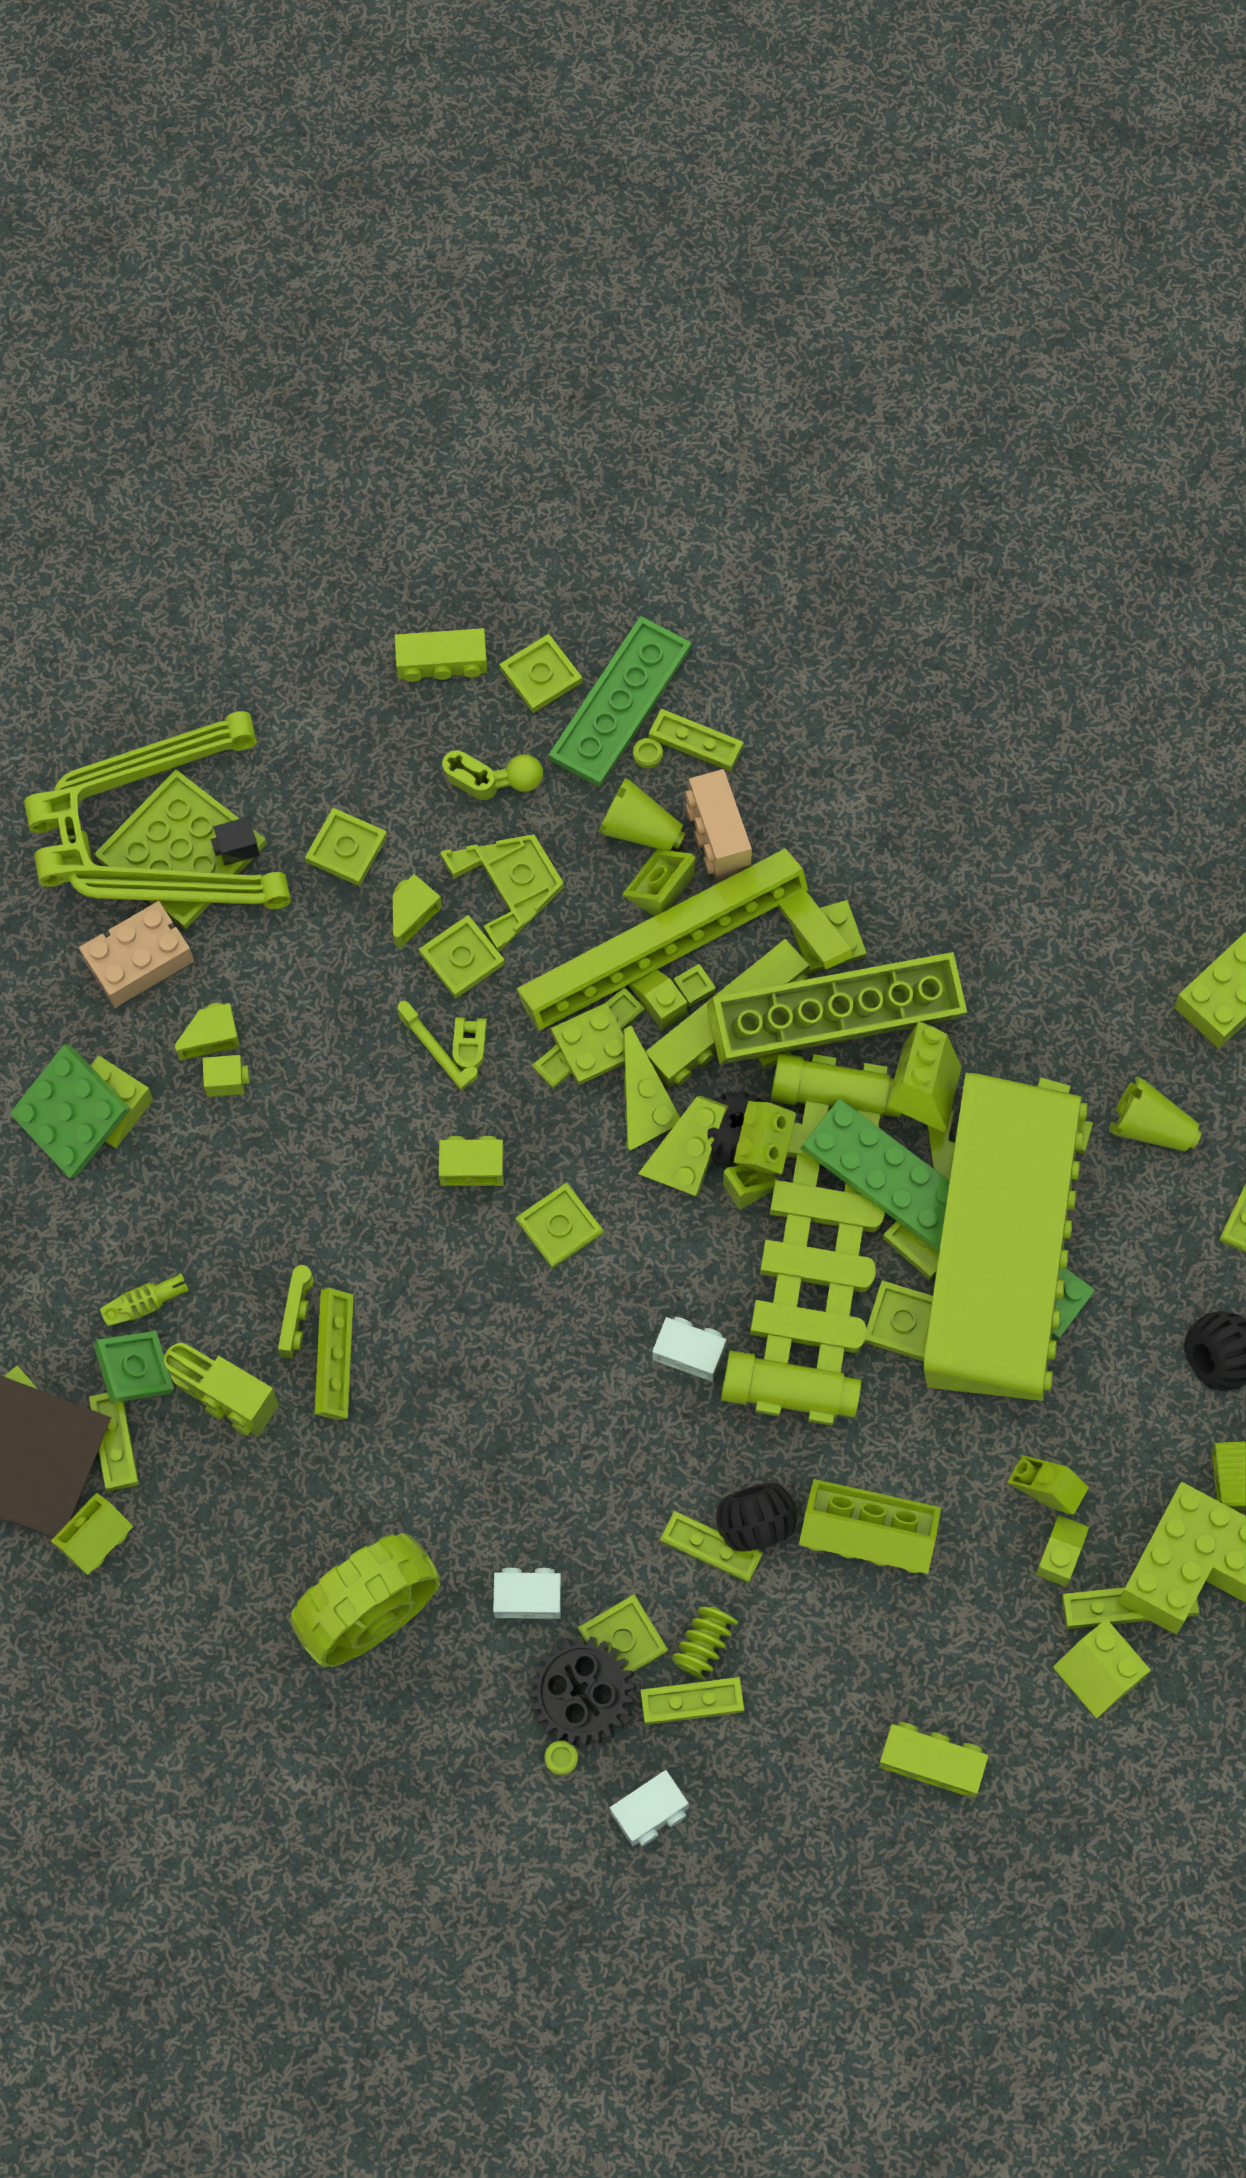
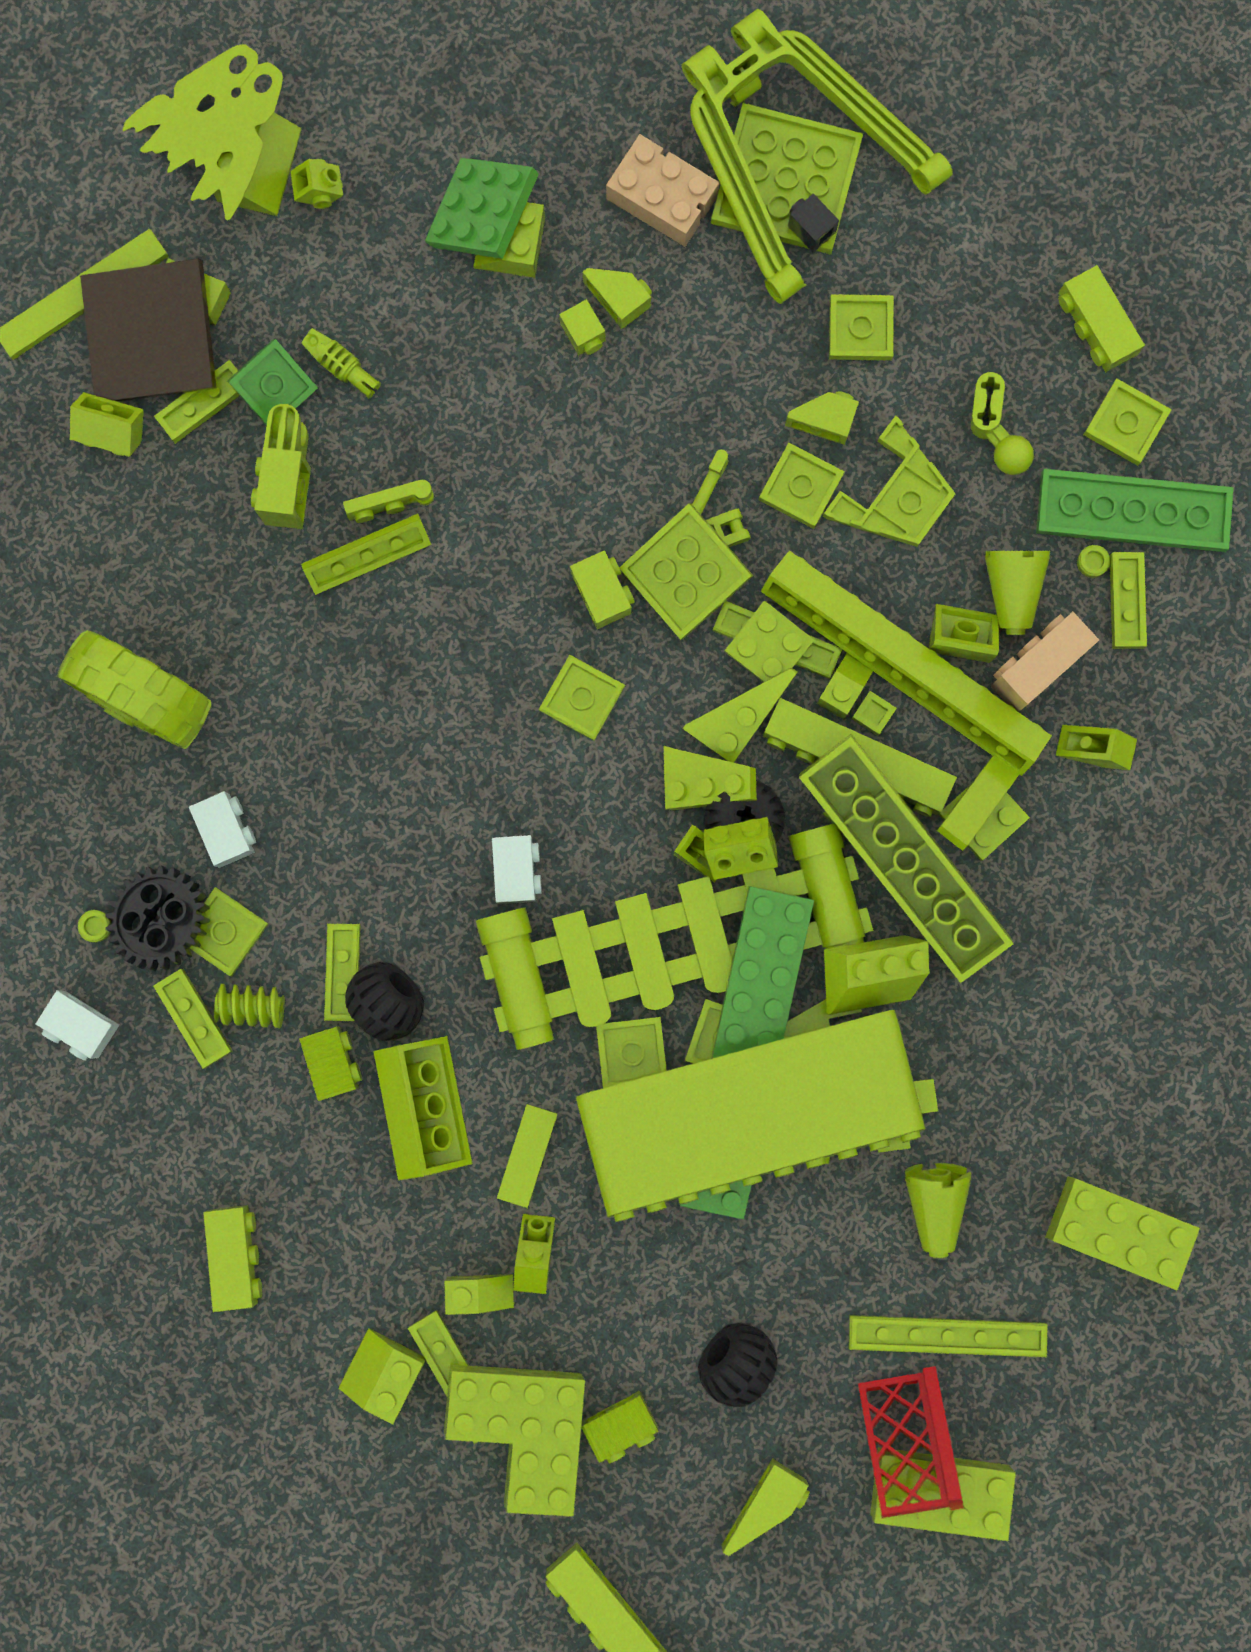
camera: 65 degrees right, 15 degrees up
(491, 1083) = (686, 571): none -> lime plate
(792, 1590) = (330, 1063): none -> lime brick
(811, 819) = (1097, 746): none -> lime slope
(955, 1454) = (527, 1155): none -> lime tile

